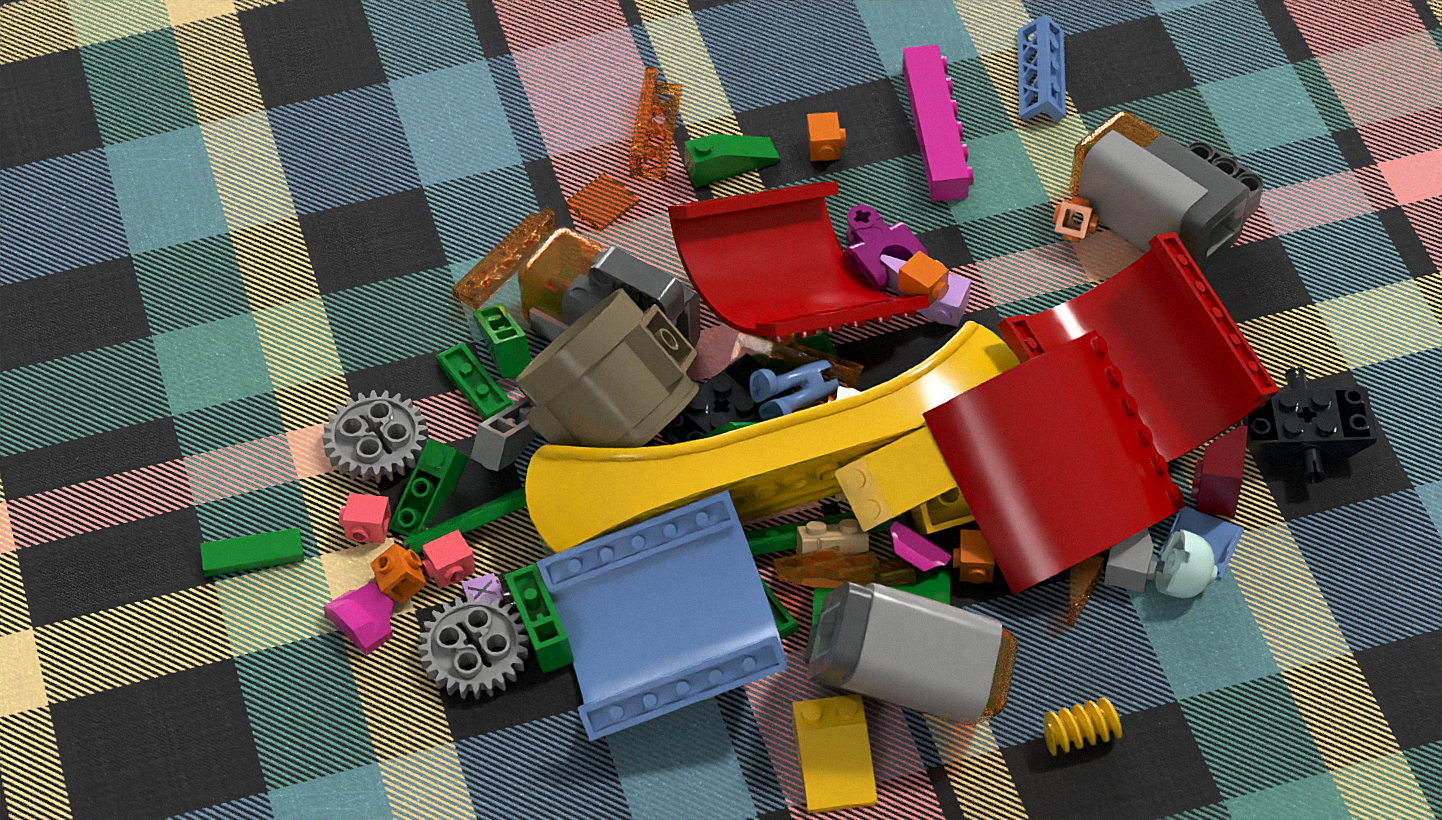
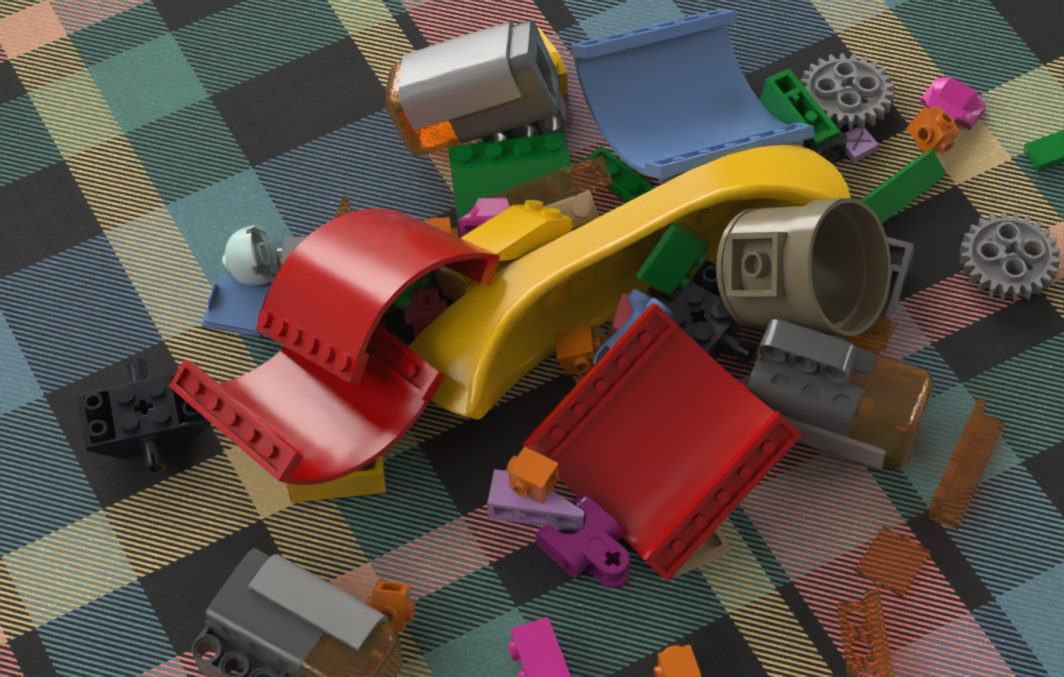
camera: 170 degrees right, 5 degrees up
(365, 517) = (984, 180): coral brick -> none
(428, 487) = (940, 219): green slope -> none
(448, 559) = (895, 154): coral brick -> none
(473, 381) = (943, 335): green tile -> none
(503, 340) = (924, 351): green slope -> none
(725, 156) = (775, 630): green slope -> none
(1081, 723) = (327, 112): yellow piece -> none
(1220, 474) = (223, 338): dark red slope -> none

